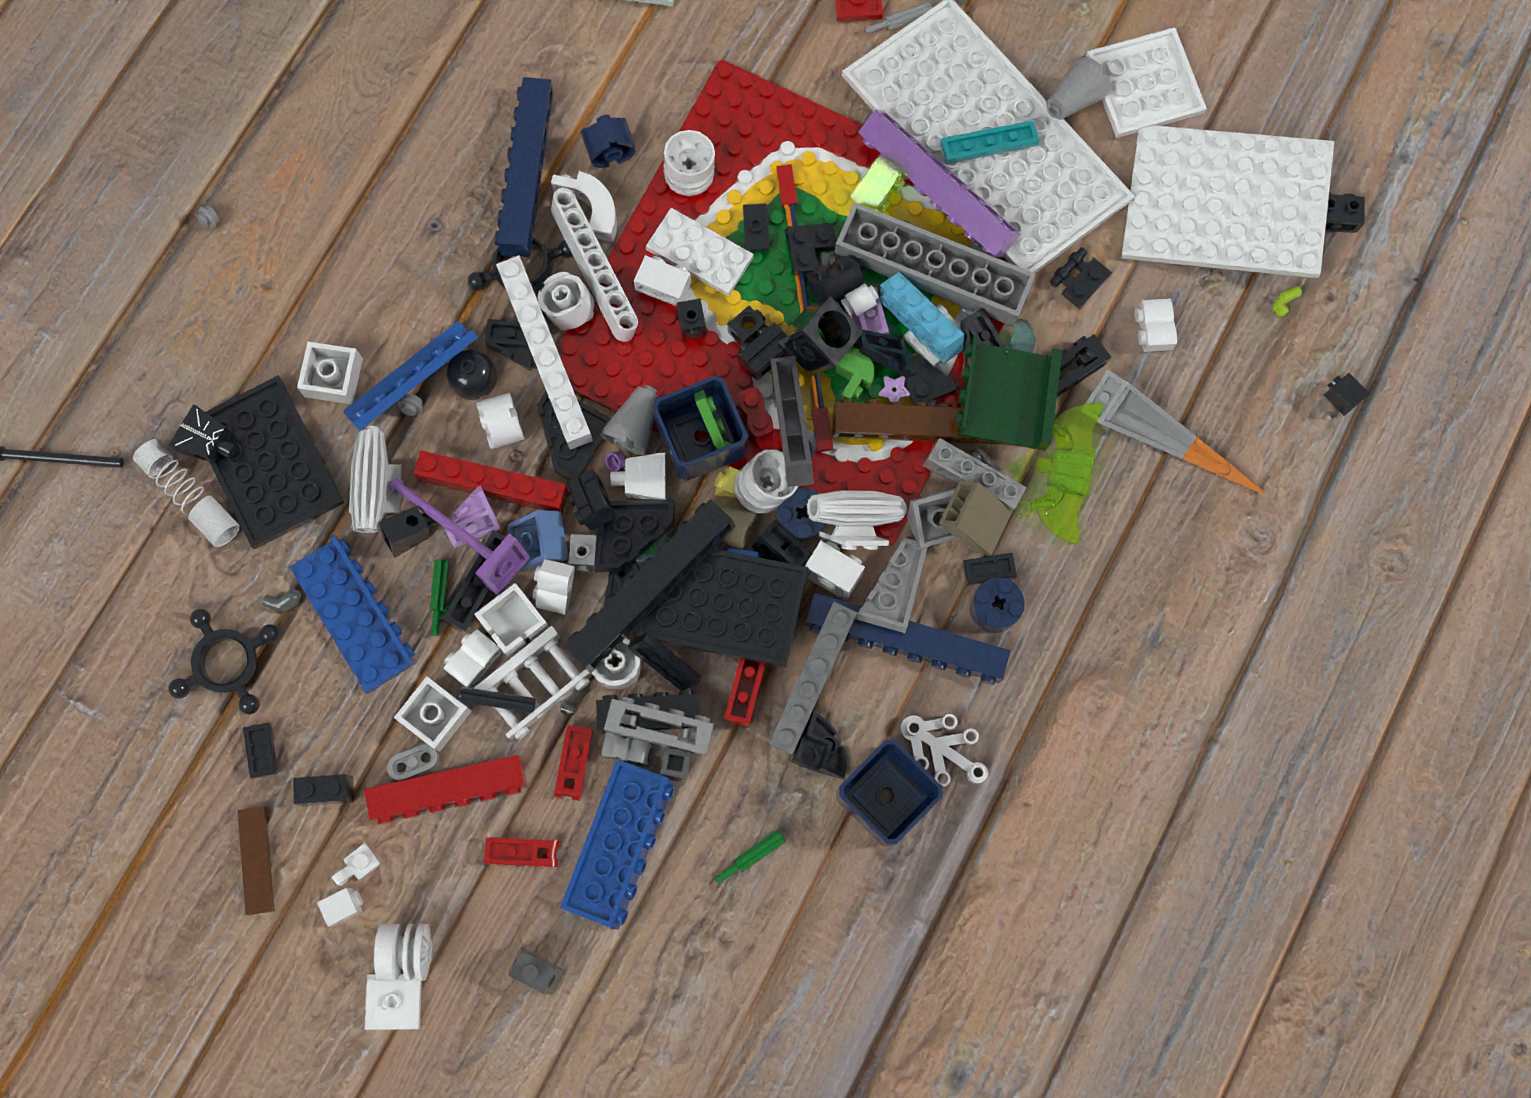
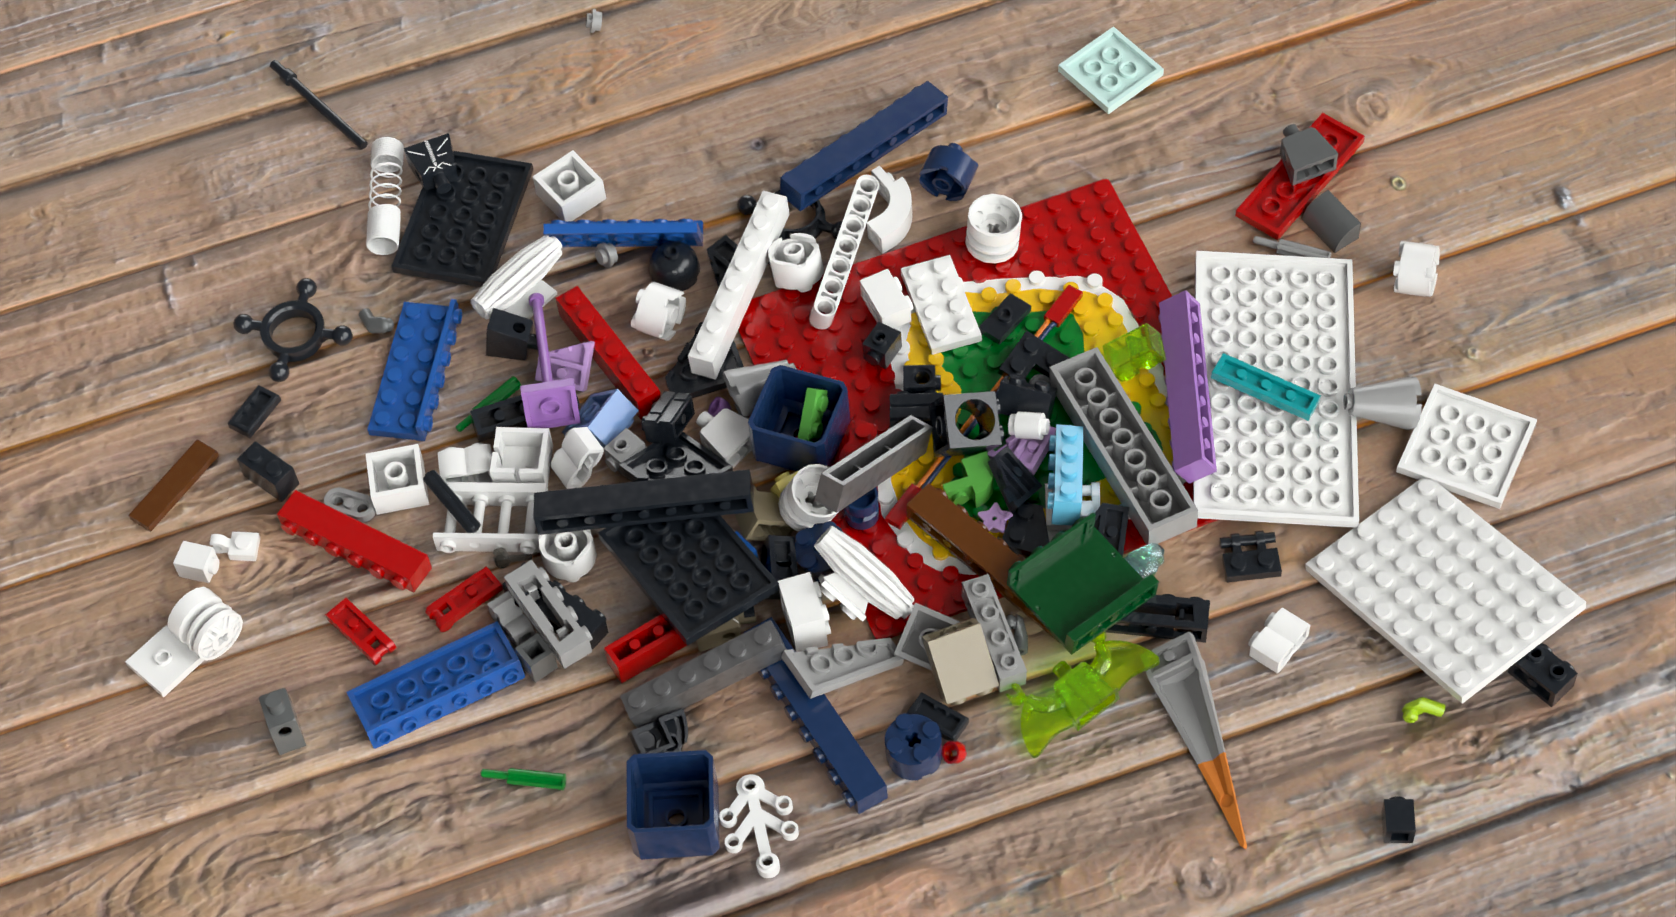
camera: 50 degrees right, 20 degrees down
(664, 661) = (602, 572): black plate -> none
(1028, 587) = (952, 746): none -> red hinge

